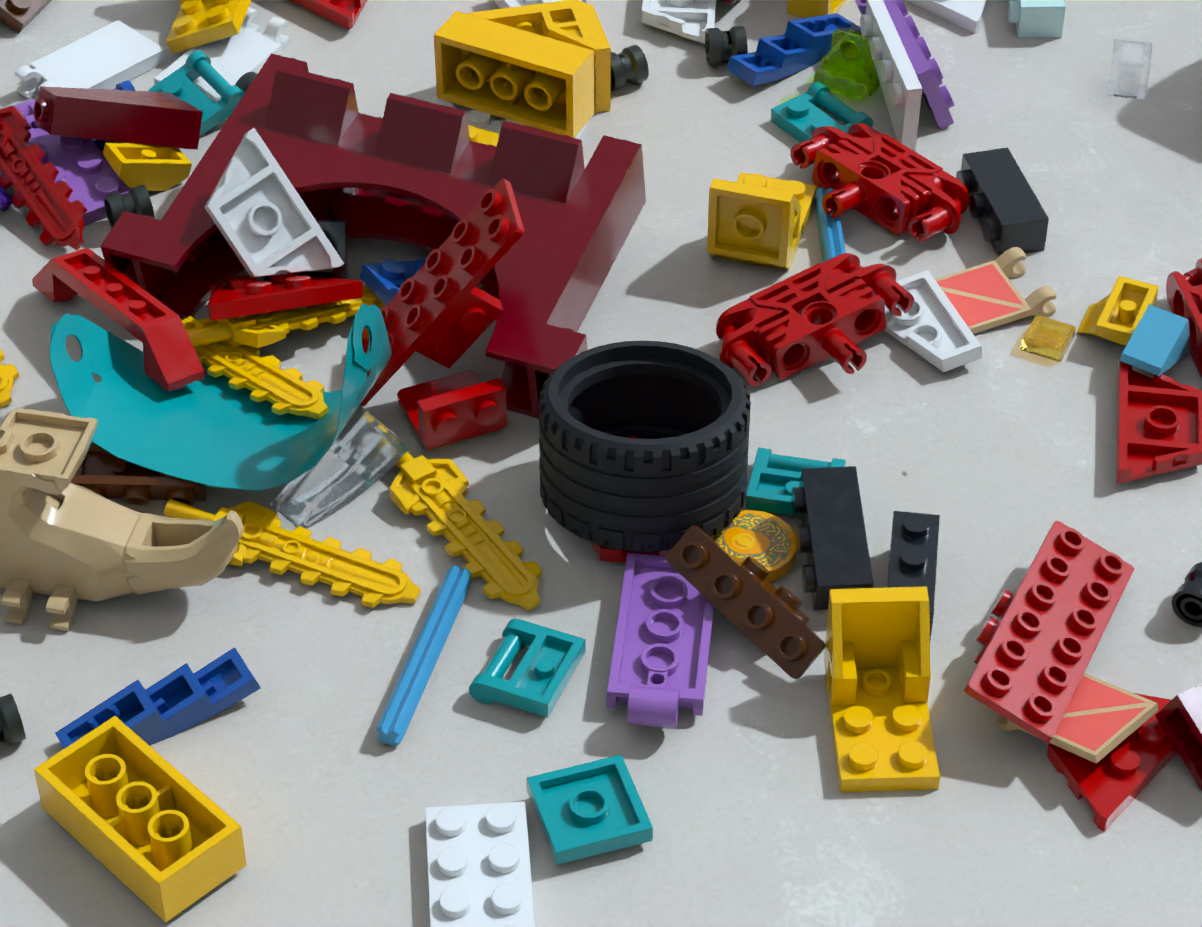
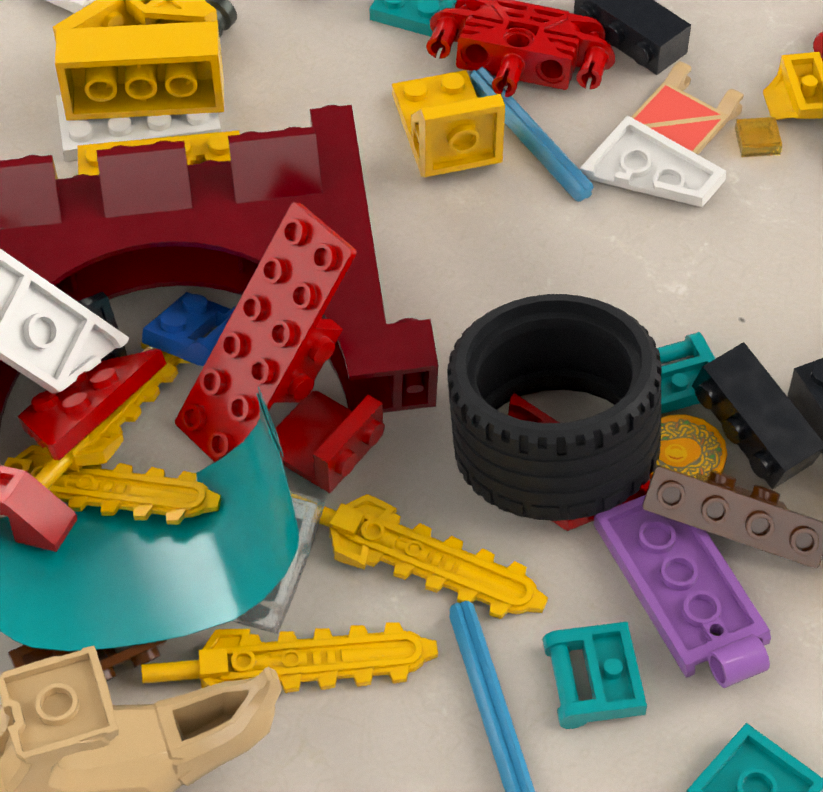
camera: 30 degrees left, 10 degrees up
(810, 319) = (569, 208): red piece -> none

